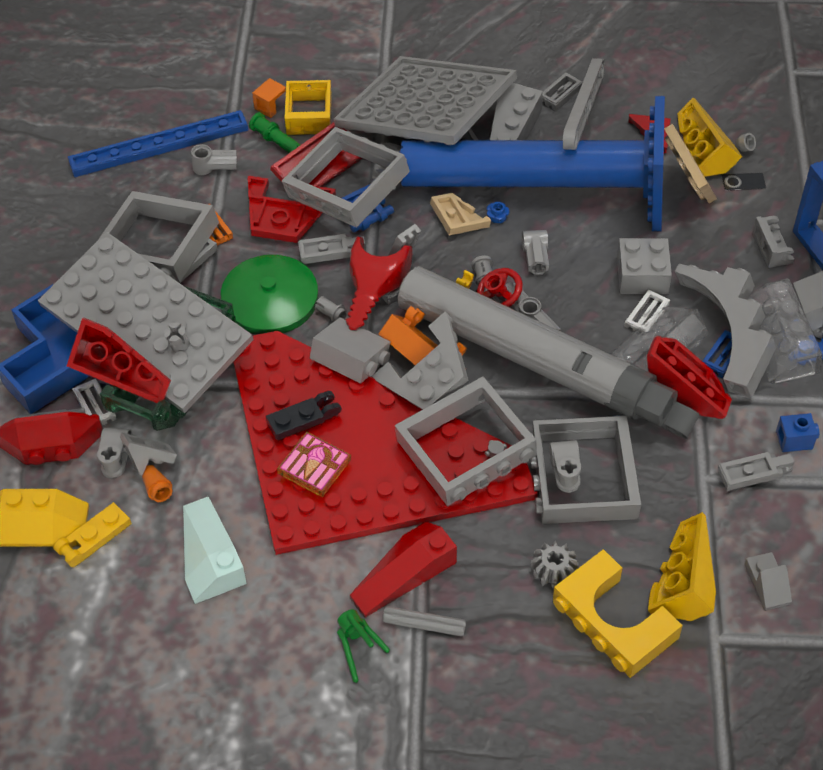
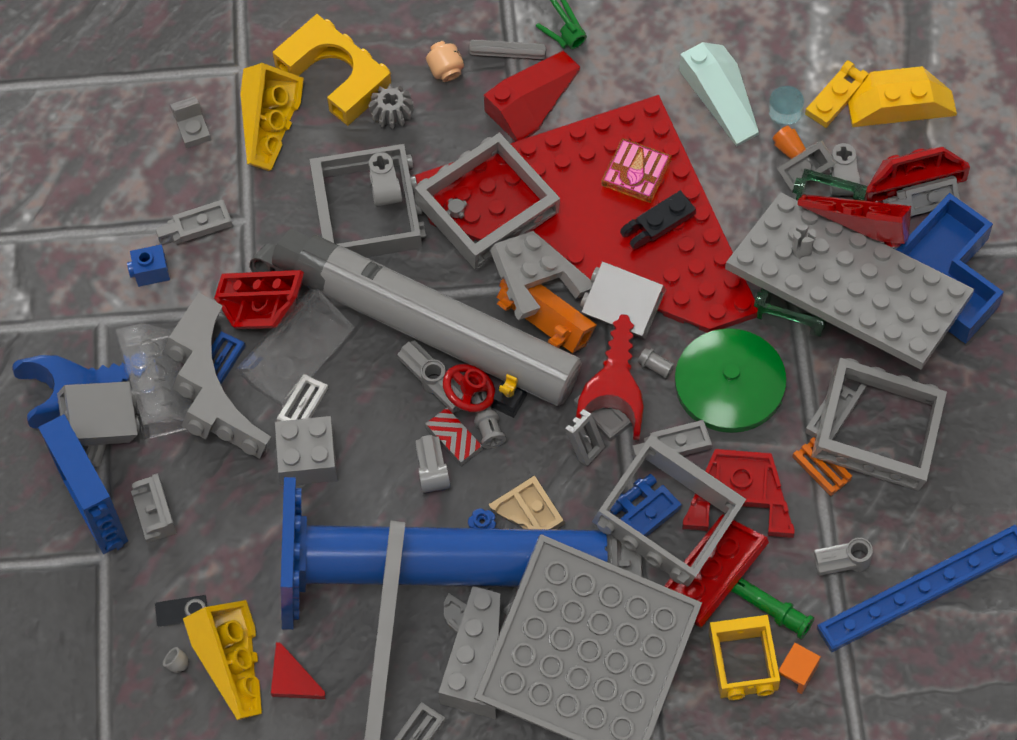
camera: 175 degrees right, 10 degrees up
(148, 524) = (786, 105): none -> clear light blue piece
(493, 605) = (445, 61): none -> light nougat head
(511, 261) = (454, 436): none -> tile
(688, 164) = (248, 565): tan plate -> none

